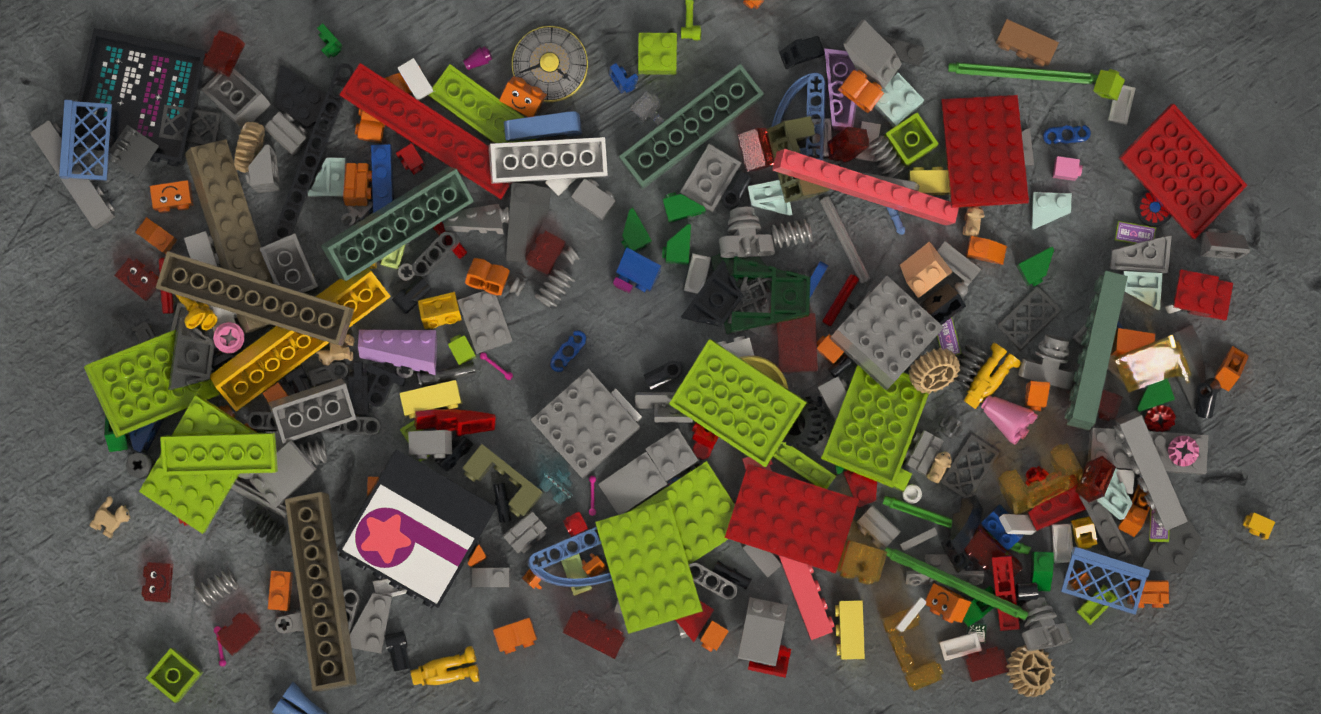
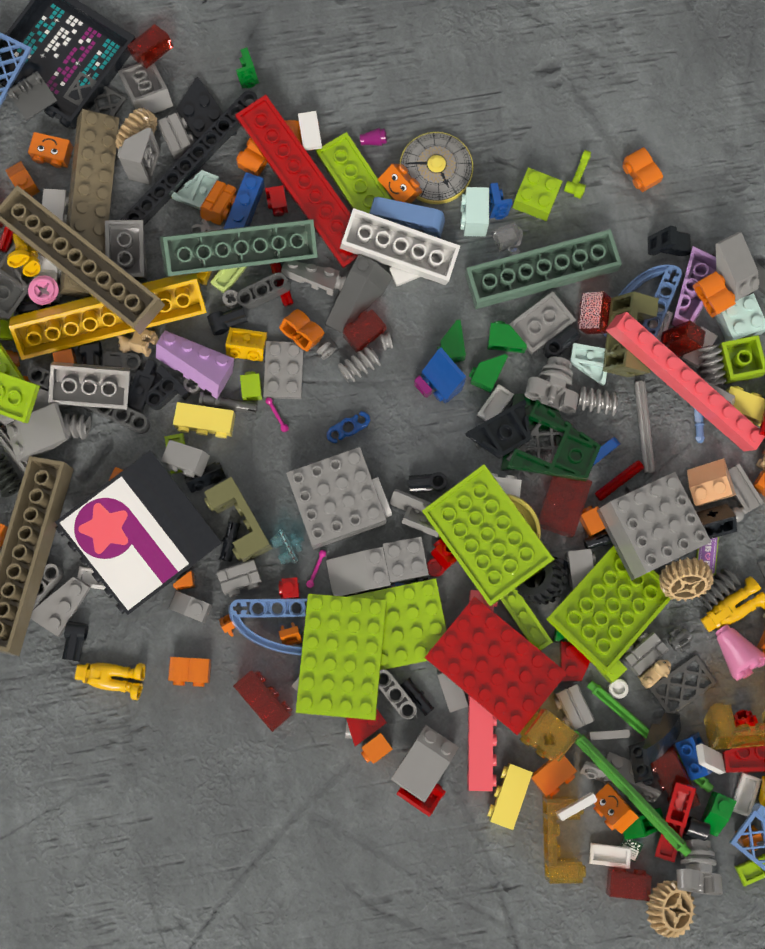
camera: 20 degrees right, 5 degrees down
(451, 419) = (224, 451): red slope -> none
(574, 570) = (270, 630): yellowish green tile -> none
(594, 199) = (427, 299): light grey brick -> none
(606, 96) = (475, 211): none -> light aqua brick
(882, 595) = (552, 775): none -> orange brick

